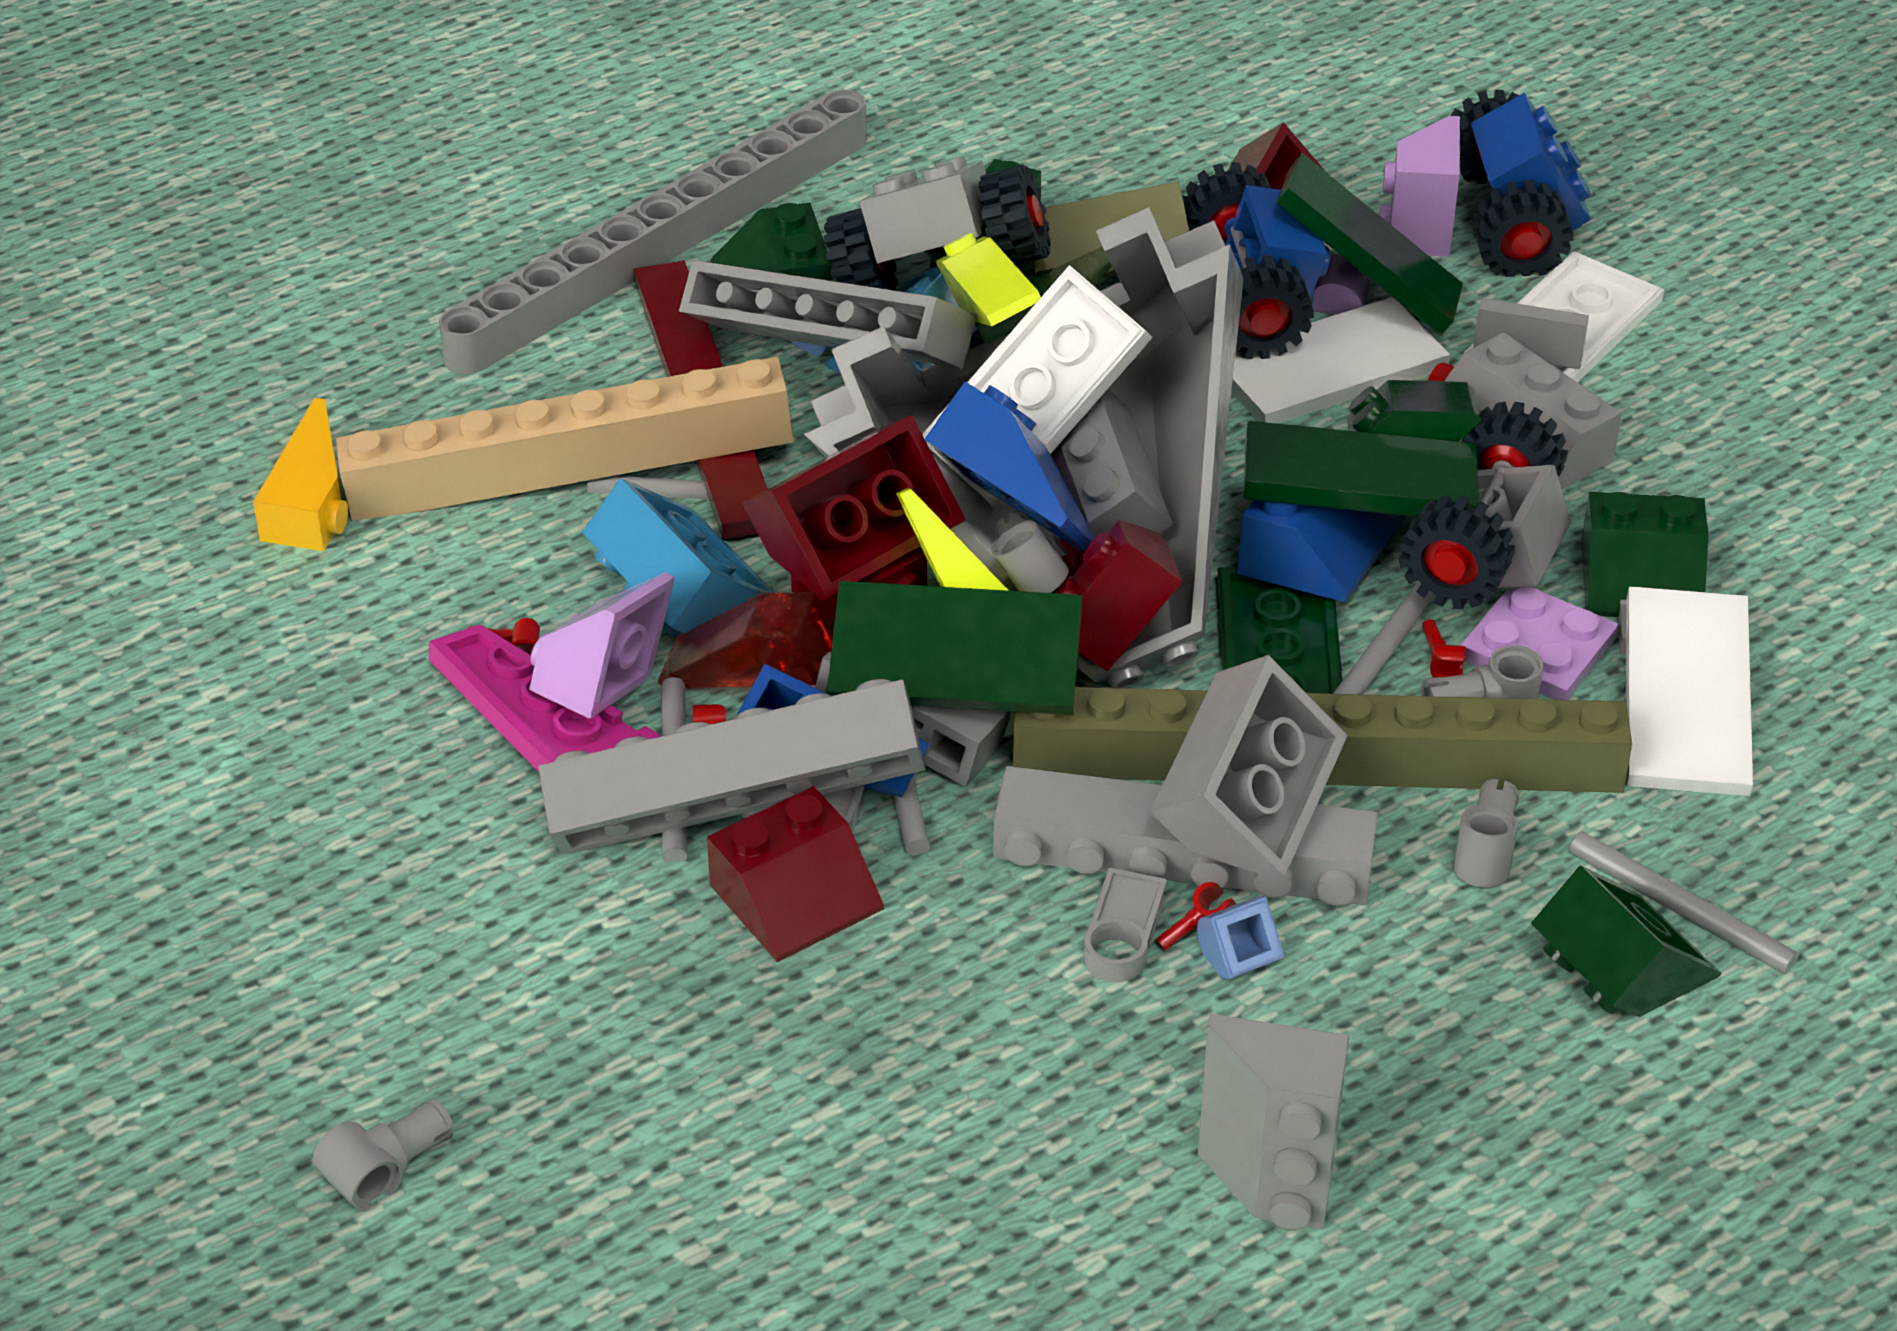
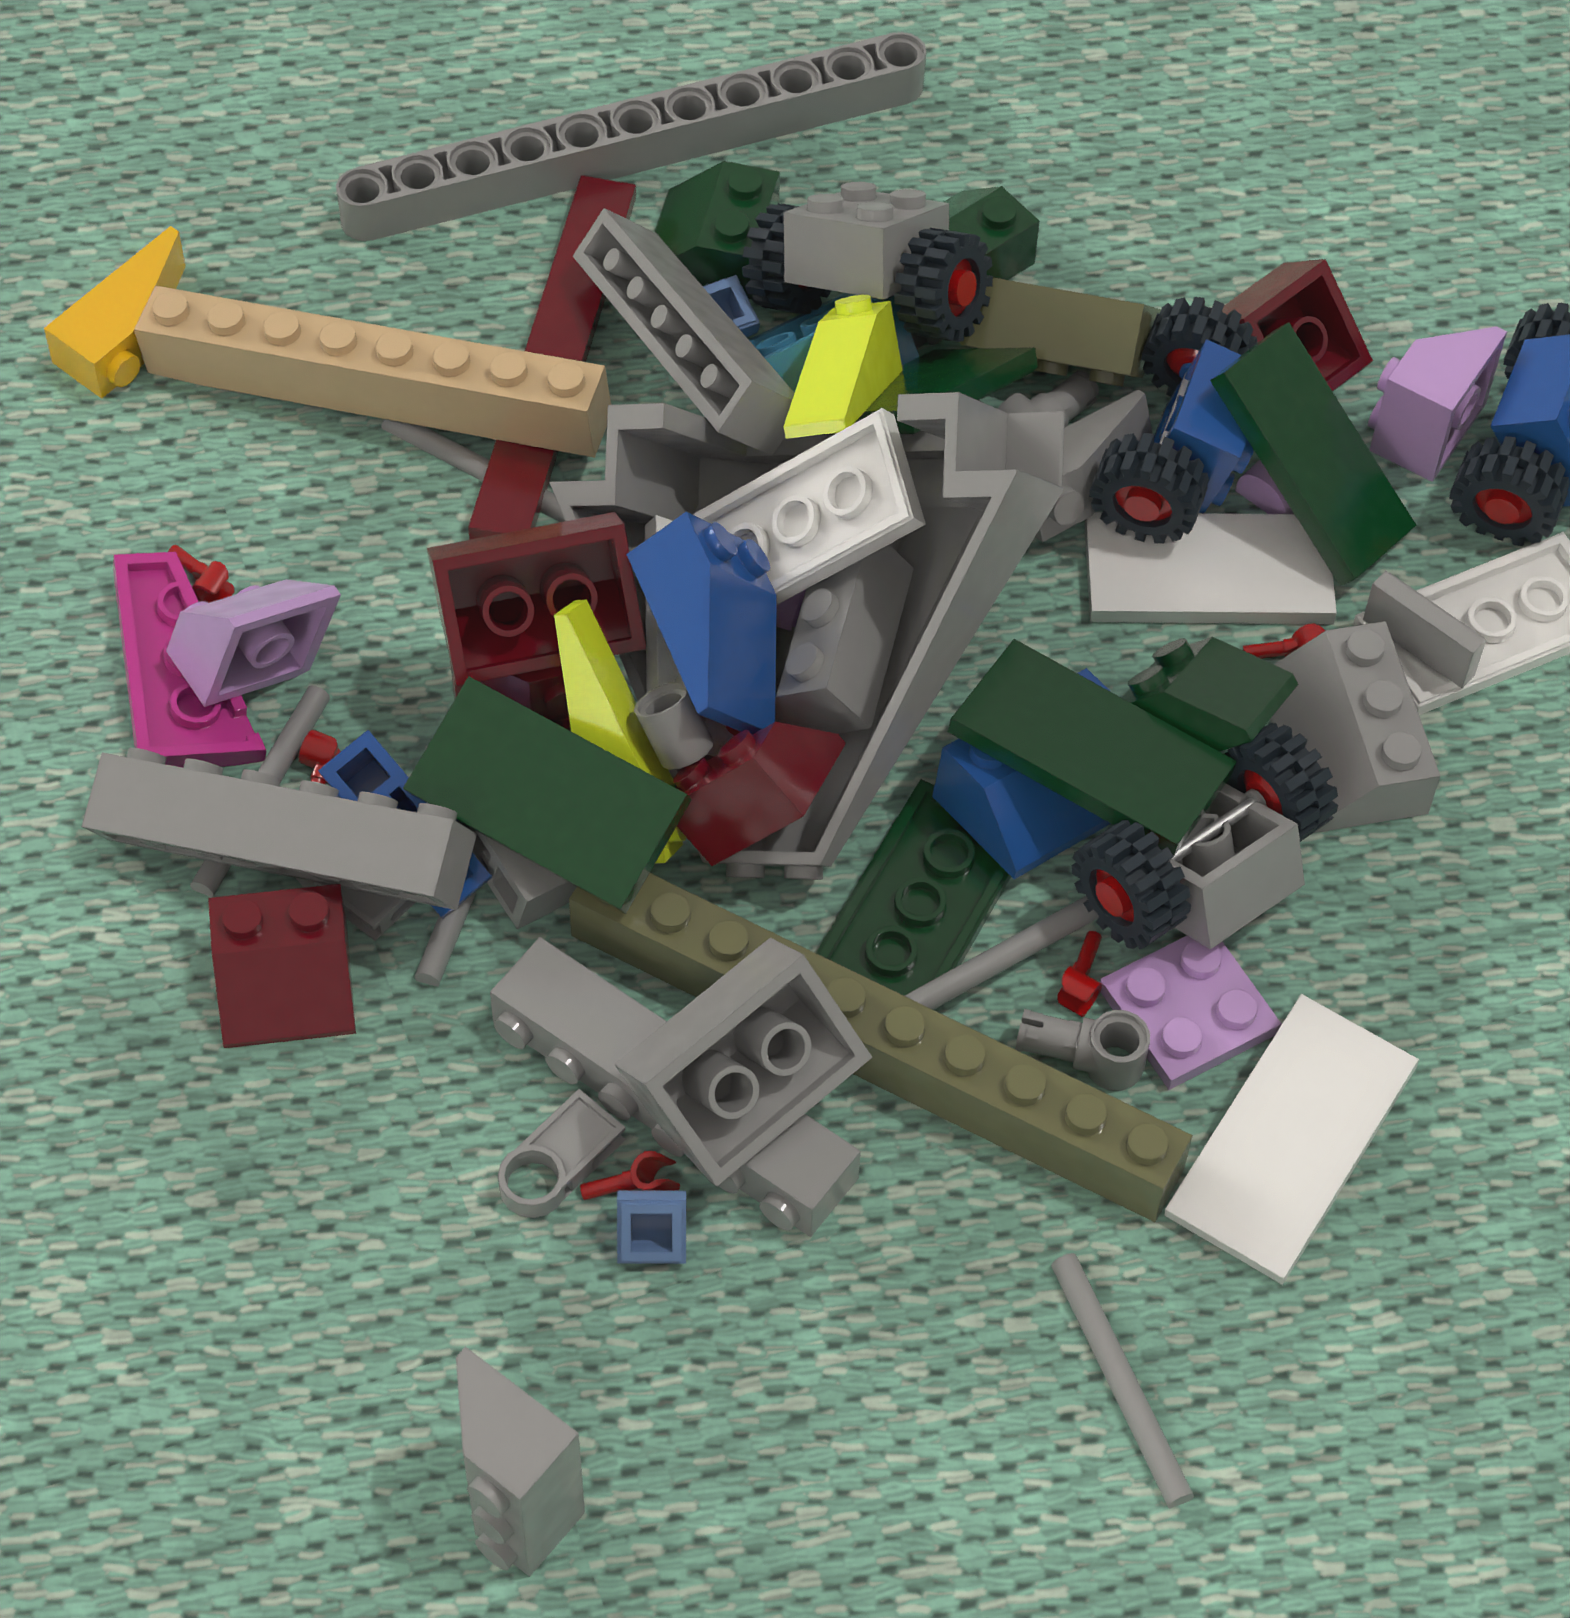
camera: 25 degrees right, 15 degrees up
(651, 535) = (381, 531): dark azure slope -> none
(768, 629) = (390, 690): clear red slope -> none
(1488, 836) = (976, 1212): light grey pin -> none
(1619, 945) = (1016, 1406): dark green slope -> none
(1642, 545) = (1361, 952): dark green slope -> none

